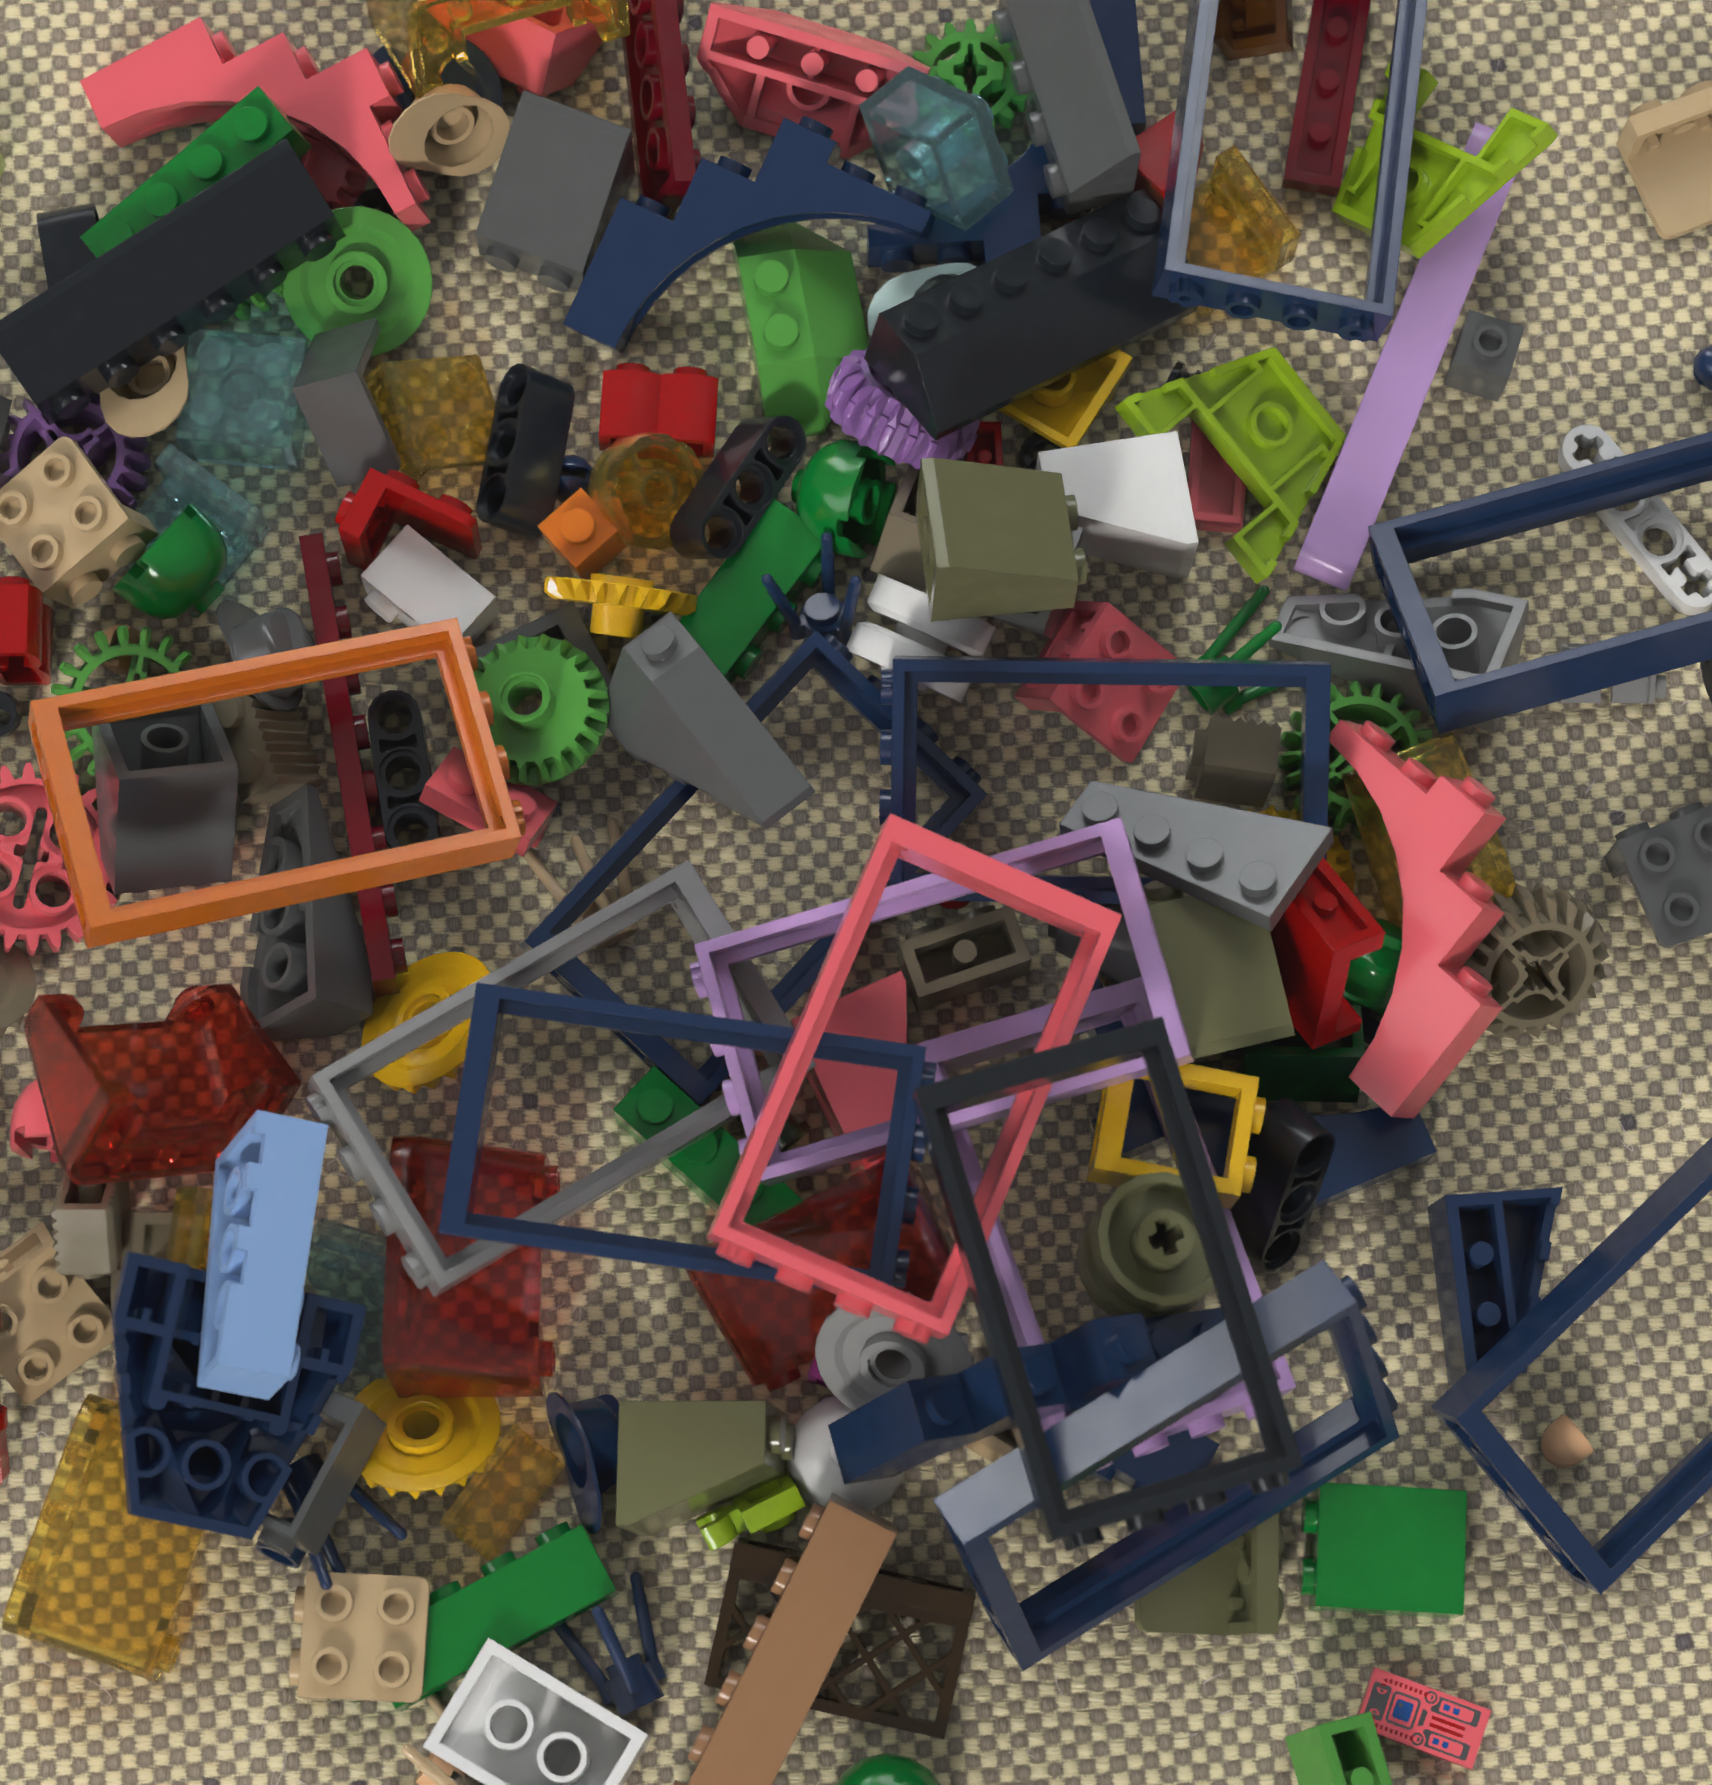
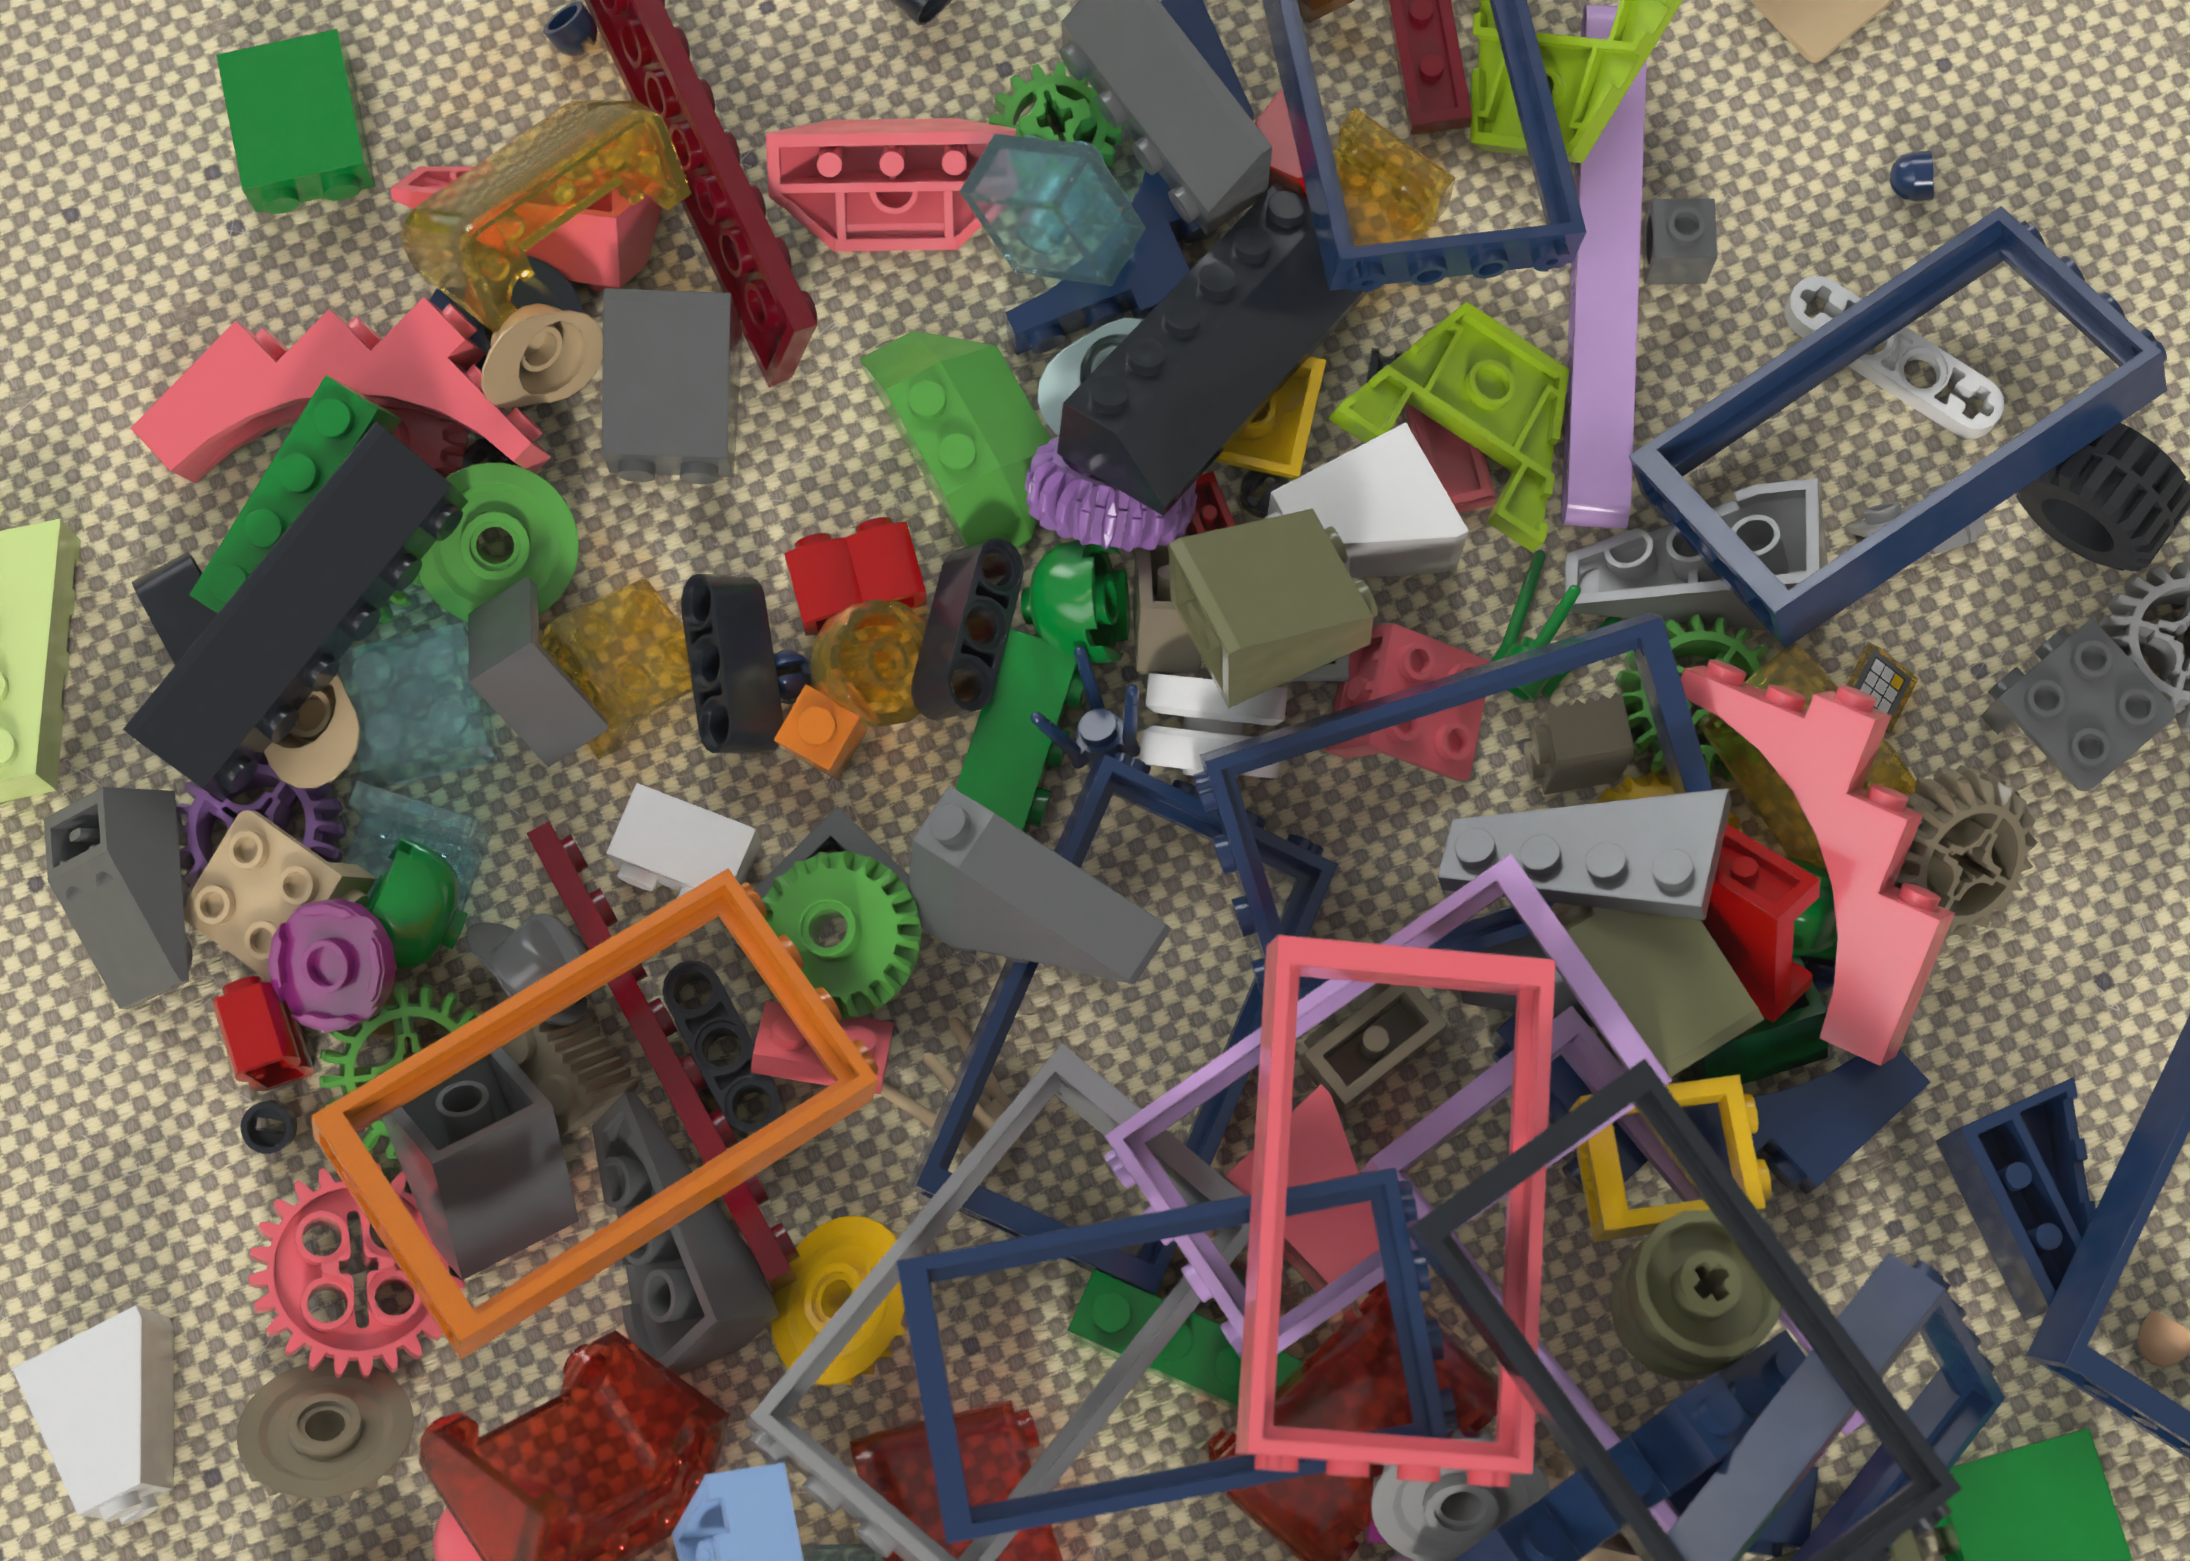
camera: 15 degrees left, 0 degrees up
(94, 589) = (332, 964): none -> magenta tile
(396, 498) = (616, 759): red bracket -> none
(619, 601) = (887, 791): yellow gear -> none
(796, 183) = (920, 291): dark blue arch -> none
(1288, 1176) = (1797, 1147): black beam -> none
(1522, 801) = (1884, 679): none -> slope

